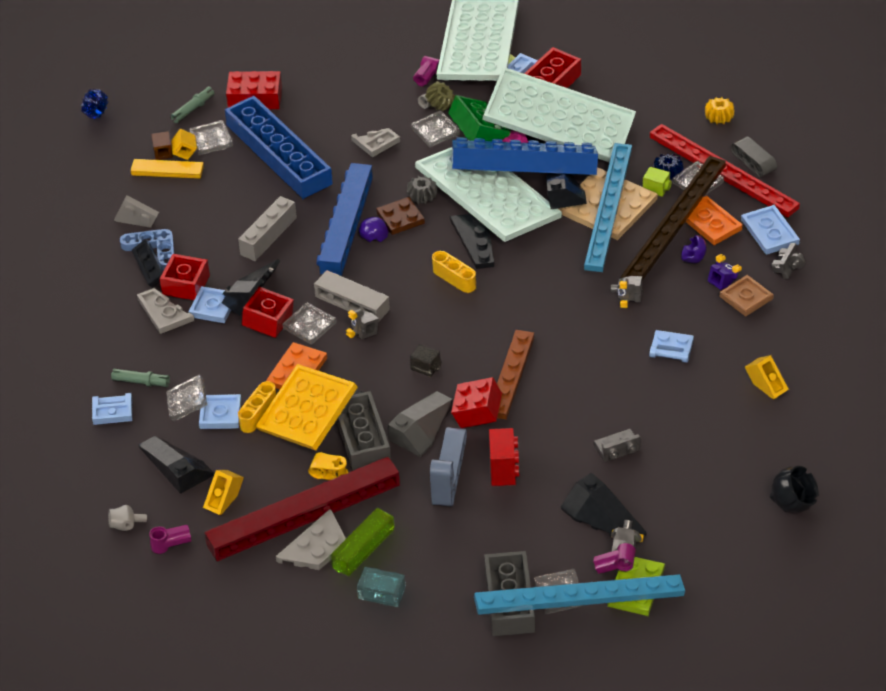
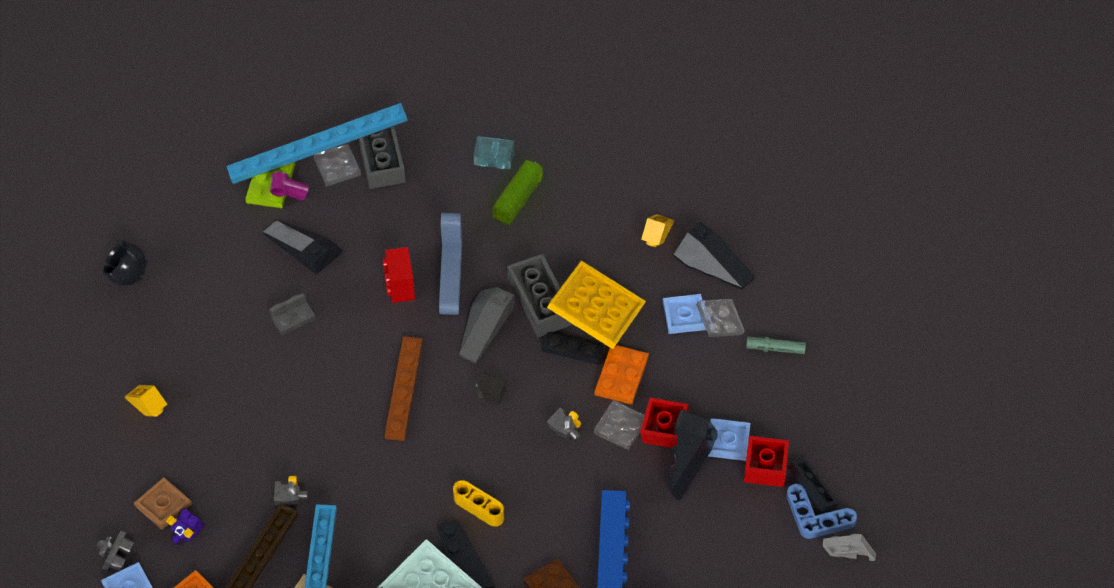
camera: 170 degrees right, 10 degrees up
(112, 409) = (791, 303): light blue plate -> none
(124, 518) = (742, 195): light grey piece -> none
(163, 312) = (777, 424): light grey wing -> none
(164, 538) = (694, 180): magenta piece -> none
(256, 406) = (645, 326): yellow beam -> none
(267, 228) = (695, 542): light grey brick -> none
(302, 508) = (581, 217): dark red brick -> none
(315, 544) = (561, 192): light grey wing -> none
(326, 466) = (565, 261): yellow piece -> none
(350, 295) = (582, 460): light grey brick -> none
(373, 228) = (578, 559): dark purple hair -> none
(476, 402) = (432, 332): red brick -> none
(625, 535) = (280, 207): flat silver piece -> none
(671, 345) = (242, 440): light blue plate -> none
(695, 251) = (218, 552): dark purple hair -> none

